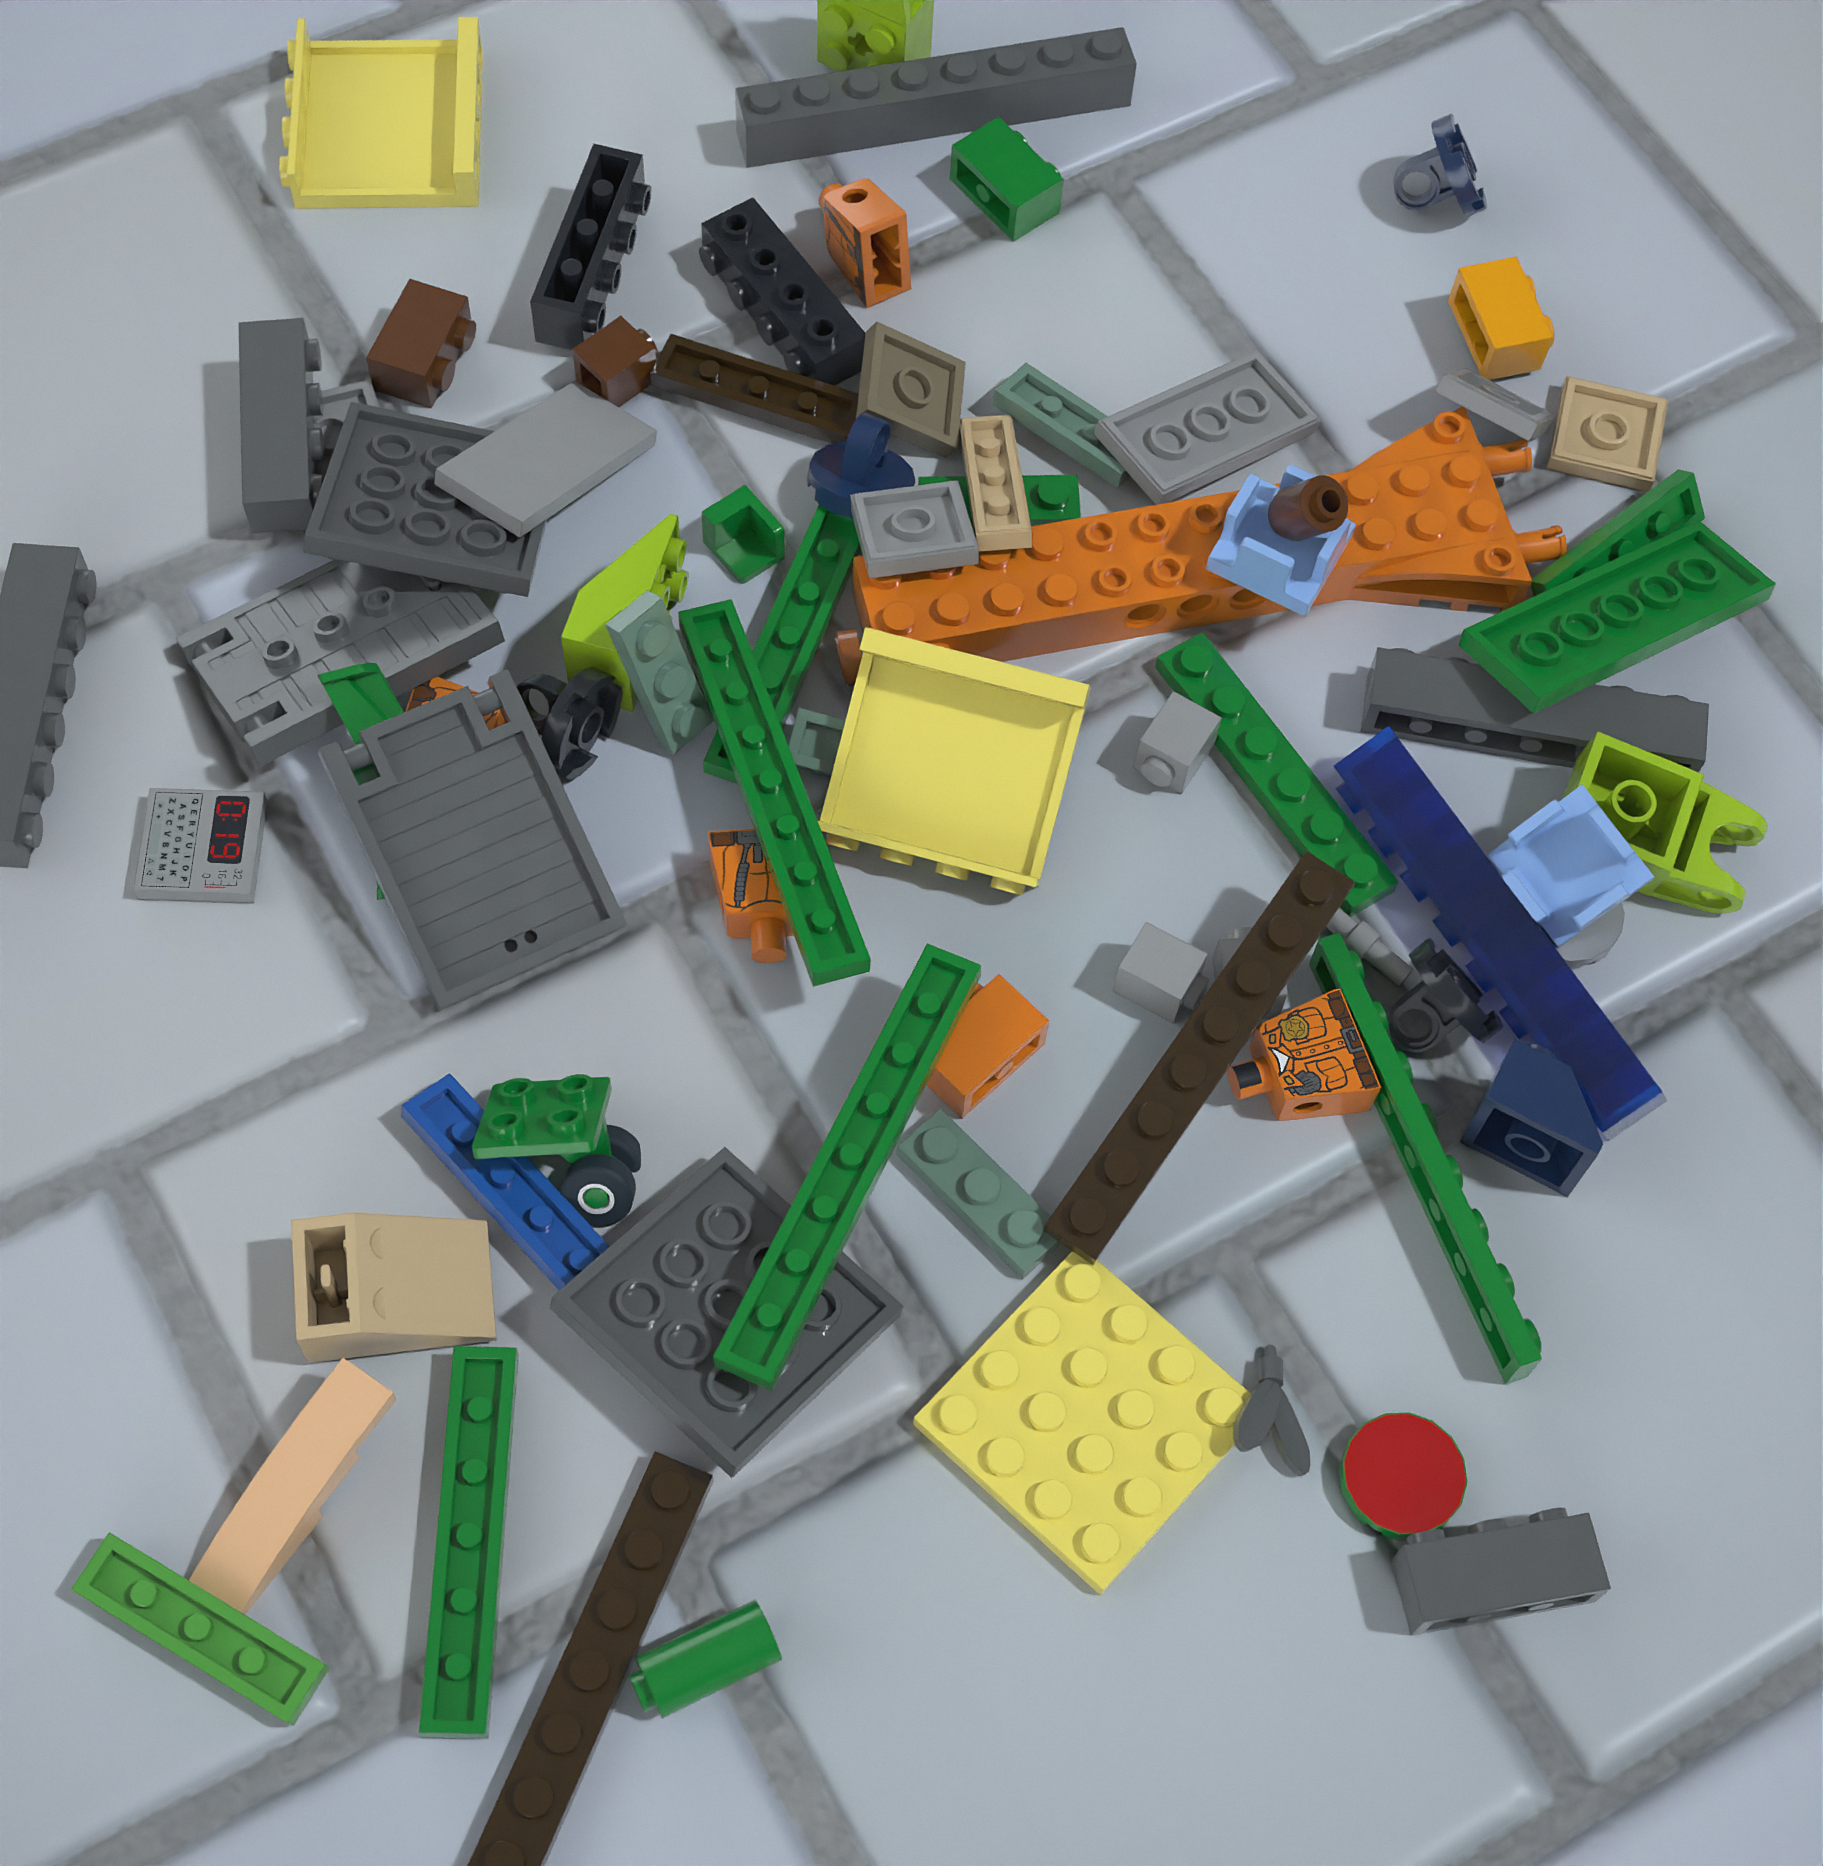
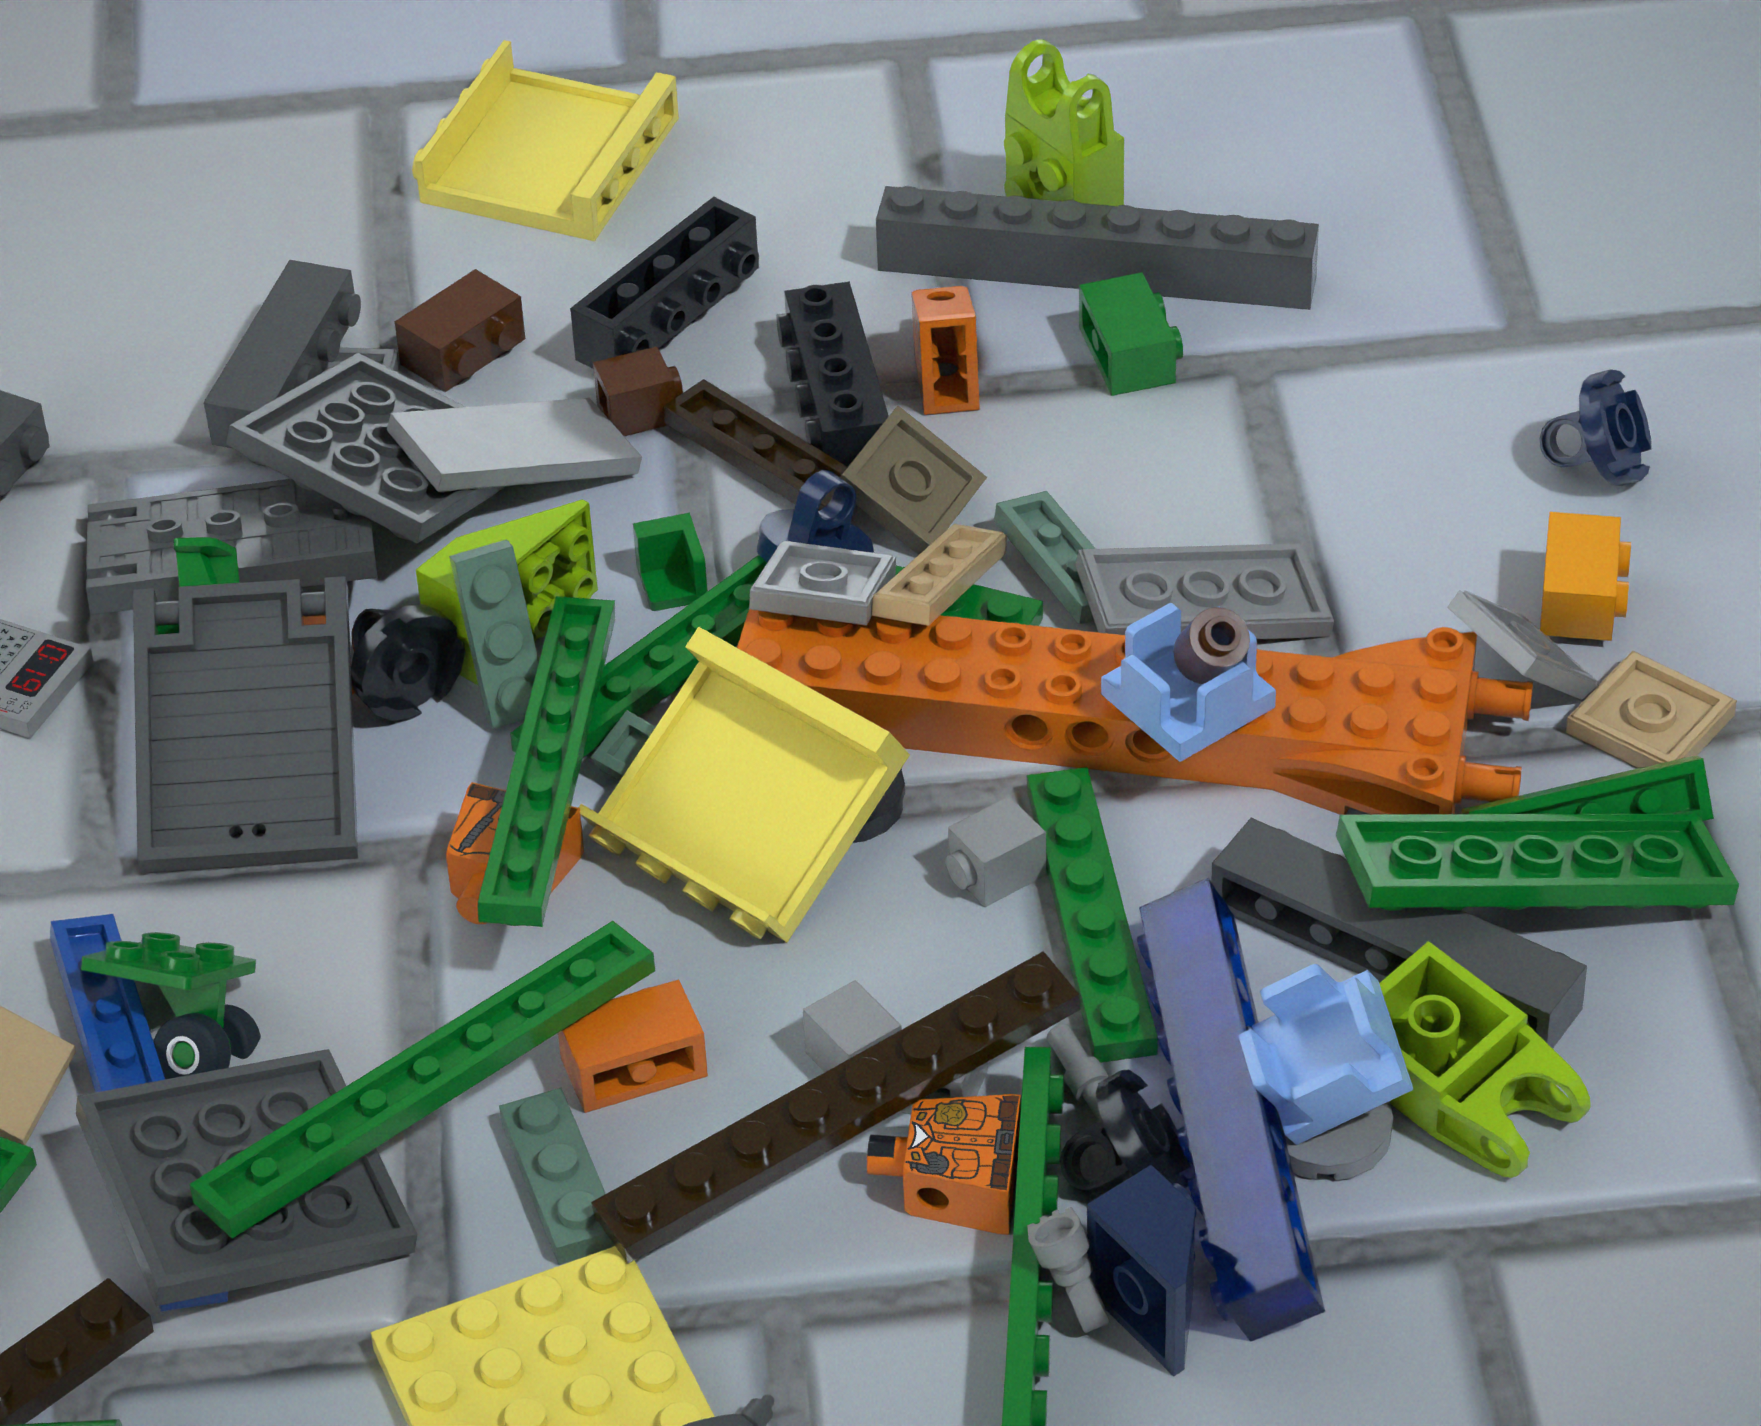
camera: 30 degrees right, 20 degrees down
(1466, 1135) = (1062, 1247): none -> light grey piece

